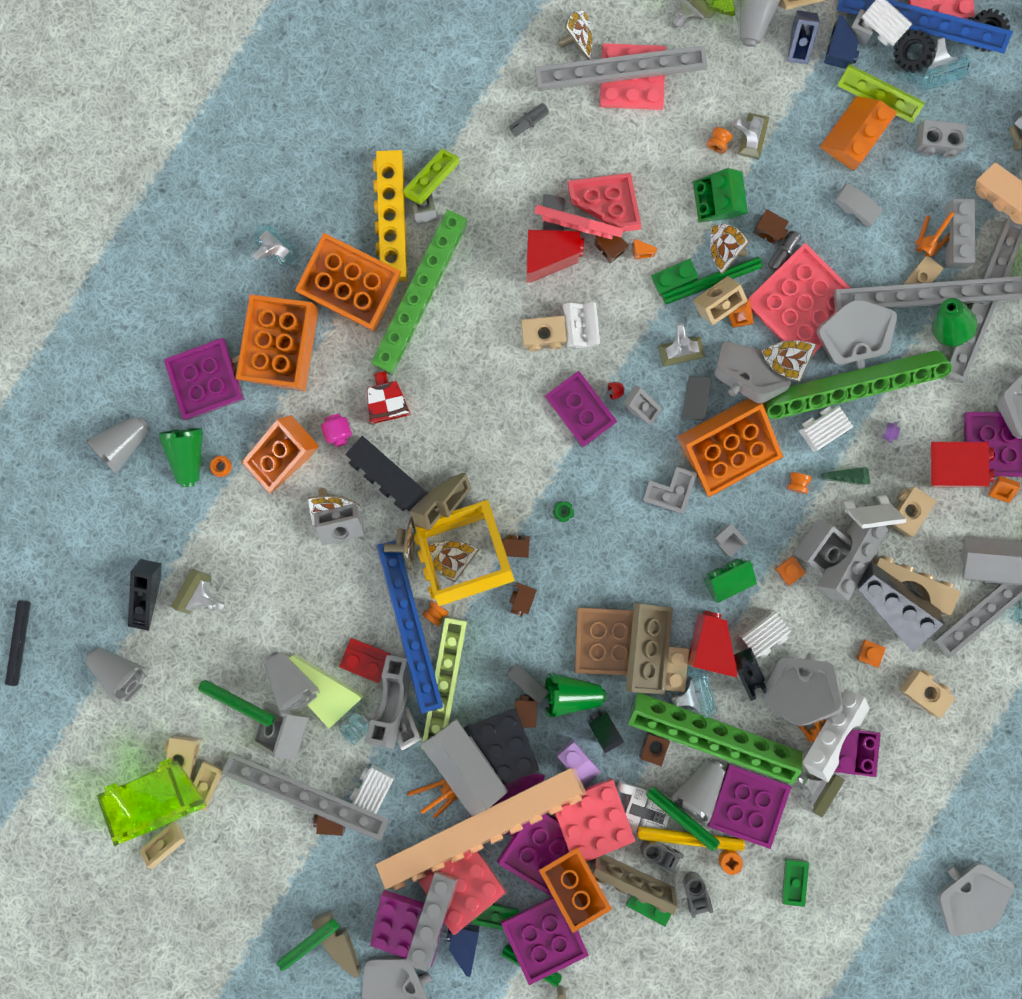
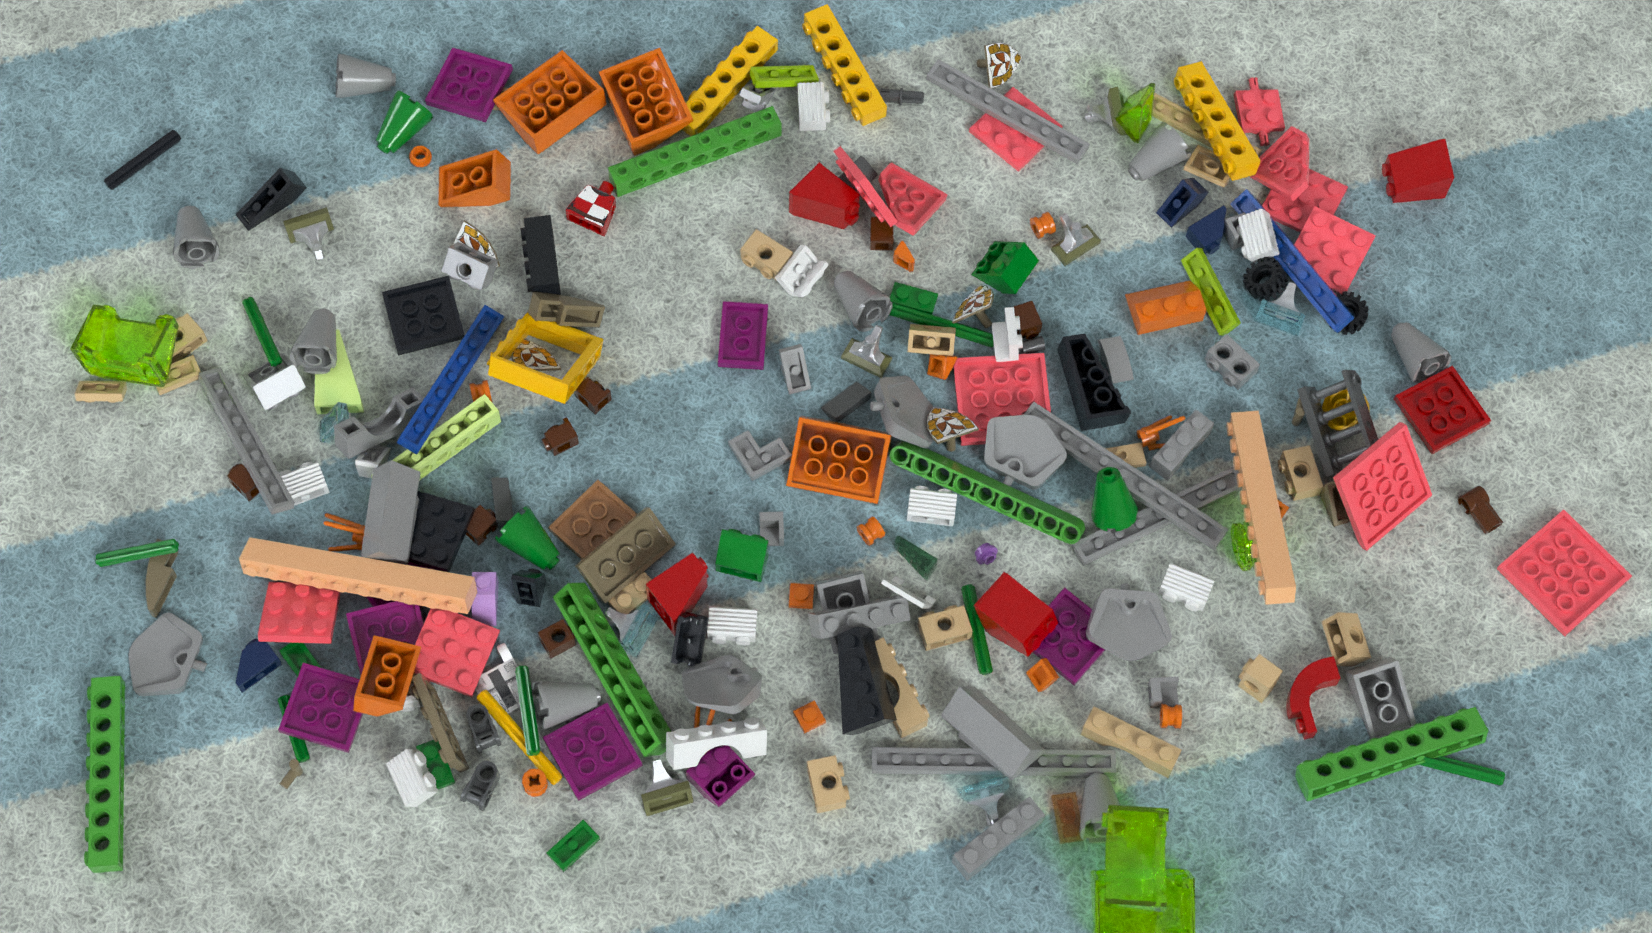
camera: 40 degrees right, 20 degrees down
(274, 245) = (616, 35): piece -> none
(336, 430) = (534, 198): dark pink head -> none
(338, 588) = (423, 315): none -> black plate
(364, 660) = (388, 382): red plate -> none
(397, 924) = (226, 607): magenta plate -> none
(404, 543) = (505, 320): dark tan shield -> none
(420, 103) = (824, 20): none -> yellow brick
(431, 921) = (229, 614): light grey arch -> none
(471, 183) = (812, 106): none -> white brick
(567, 506) = (656, 395): green plate -> none
(617, 390) = (785, 341): red hinge -> none
(641, 310) = (862, 300): none -> light grey cone
(647, 933) = (412, 777): none -> white brick
(774, 254) = (1006, 338): none -> white bracket
(859, 241) = (1089, 385): none -> black wedge
(941, 501) = (978, 635): none -> green axle

